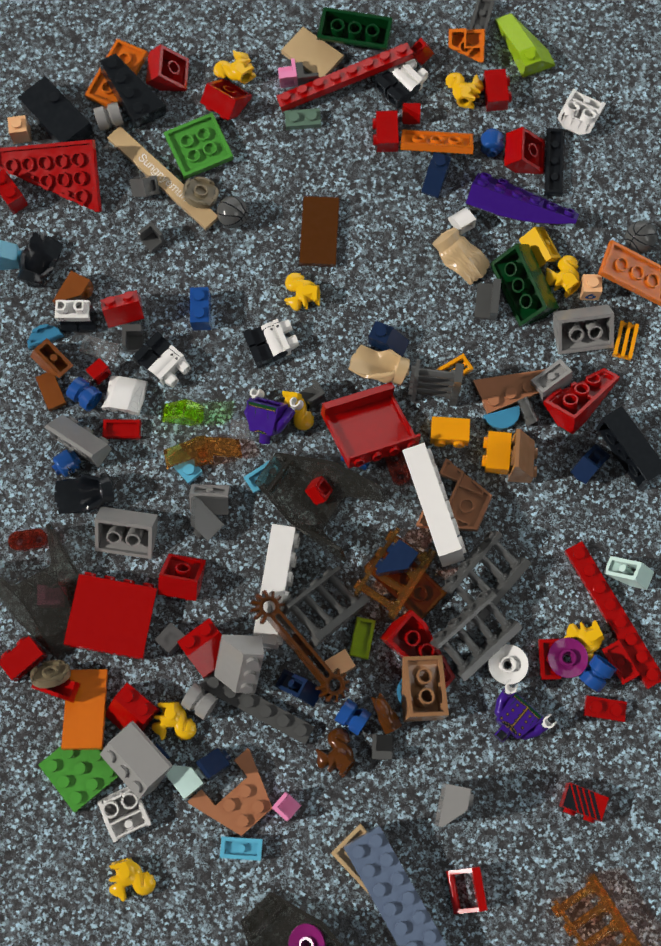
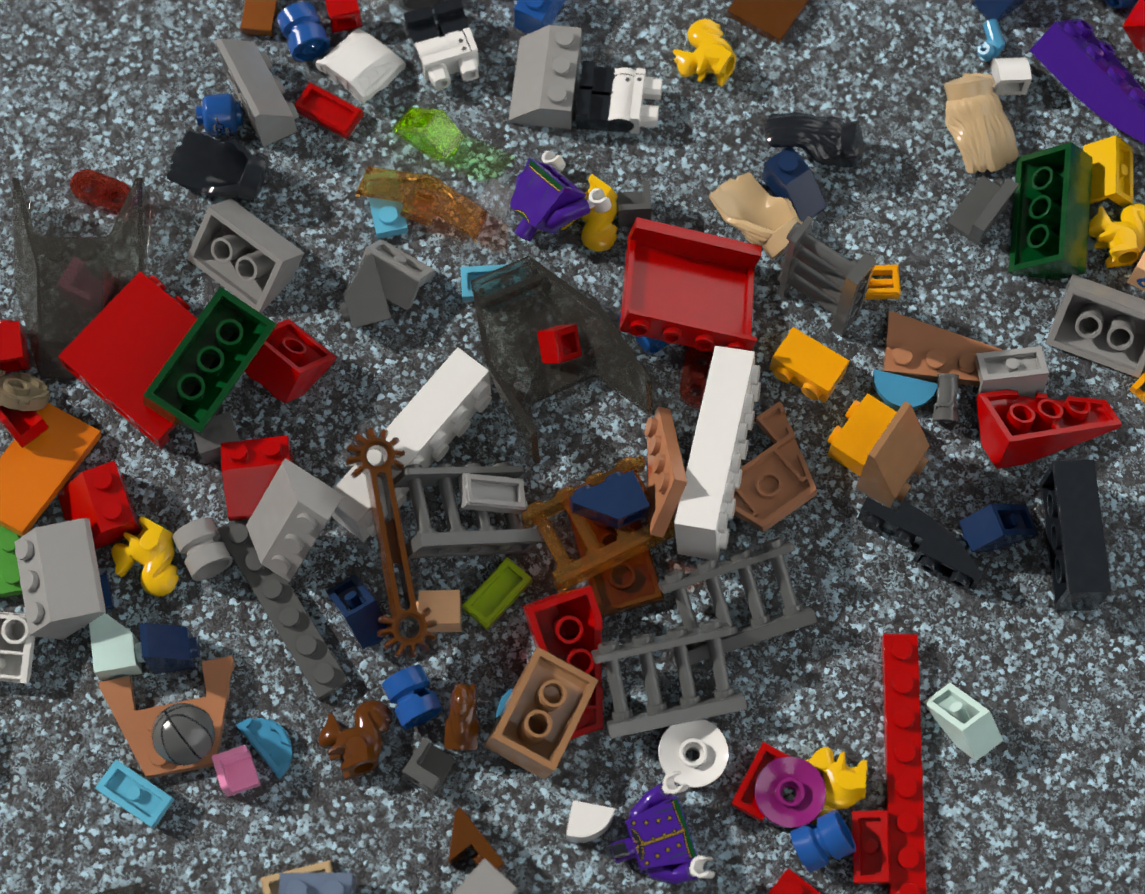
camera: 25 degrees right, 5 degrees down
(147, 603) = (208, 362): none -> dark green slope
(226, 350) = (546, 77): none -> light grey slope
(251, 805) = (183, 734): none -> dark grey piece
(293, 781) = (270, 743): none -> dark azure tile
(333, 589) = (492, 493): none -> light grey tile
(389, 307) = (823, 138): none -> black hair
(414, 529) = (665, 470): none -> nougat wing
(421, 773) = (467, 838): none -> reddish brown slope
(444, 208) = (994, 44): none -> dark azure arm
(477, 729) = (588, 821): none -> white brick
(564, 490) = (936, 546): none -> black slope

